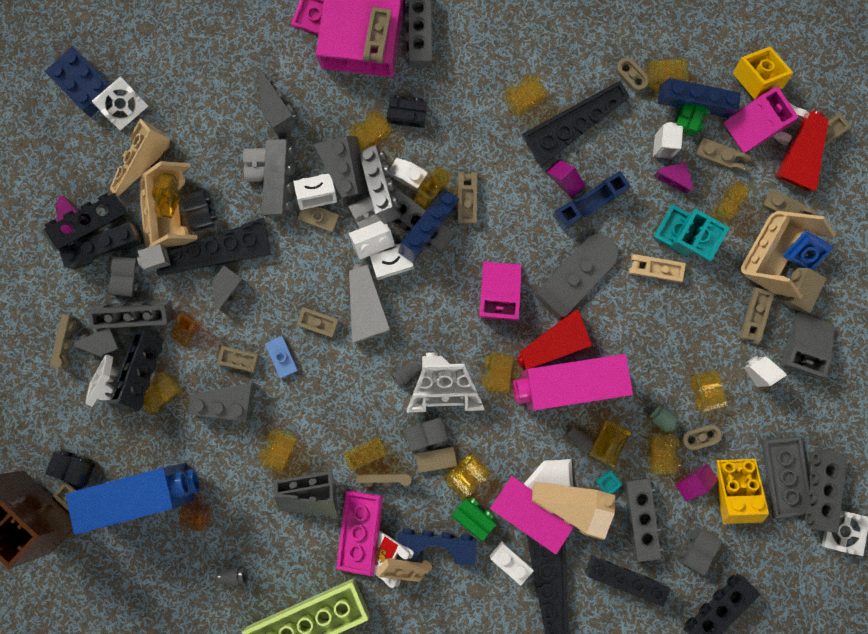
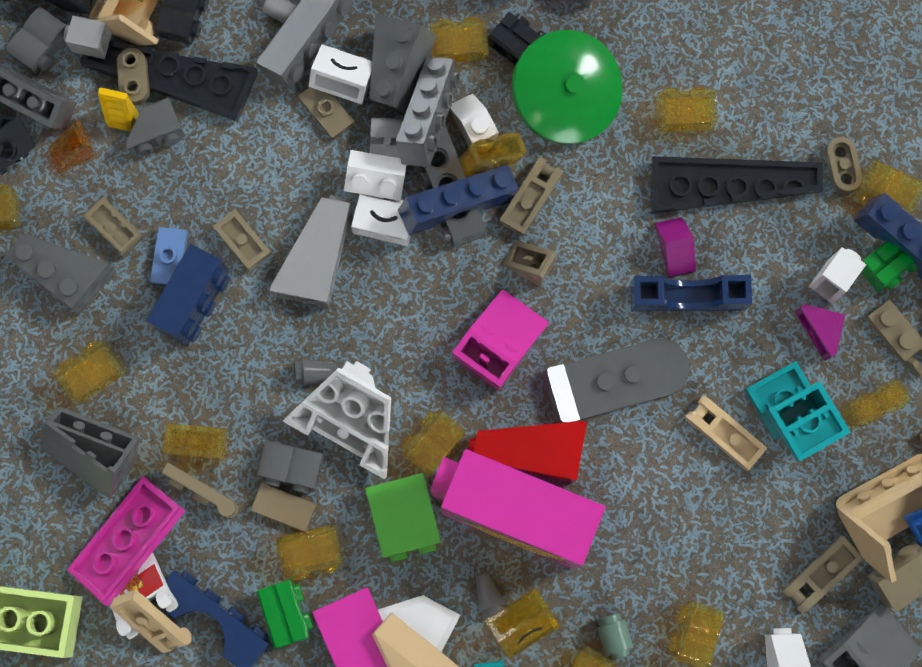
camera: 25 degrees right, 5 degrees down
(193, 264) = (133, 75): none -> dark tan plate
(198, 290) = (117, 109): none -> yellow slope
(309, 373) = (189, 296): none -> dark blue brick
(449, 122) = (566, 87): none -> green dish
(489, 236) = (530, 261): none -> dark tan slope
(507, 424) = (403, 517): none -> bright green brick

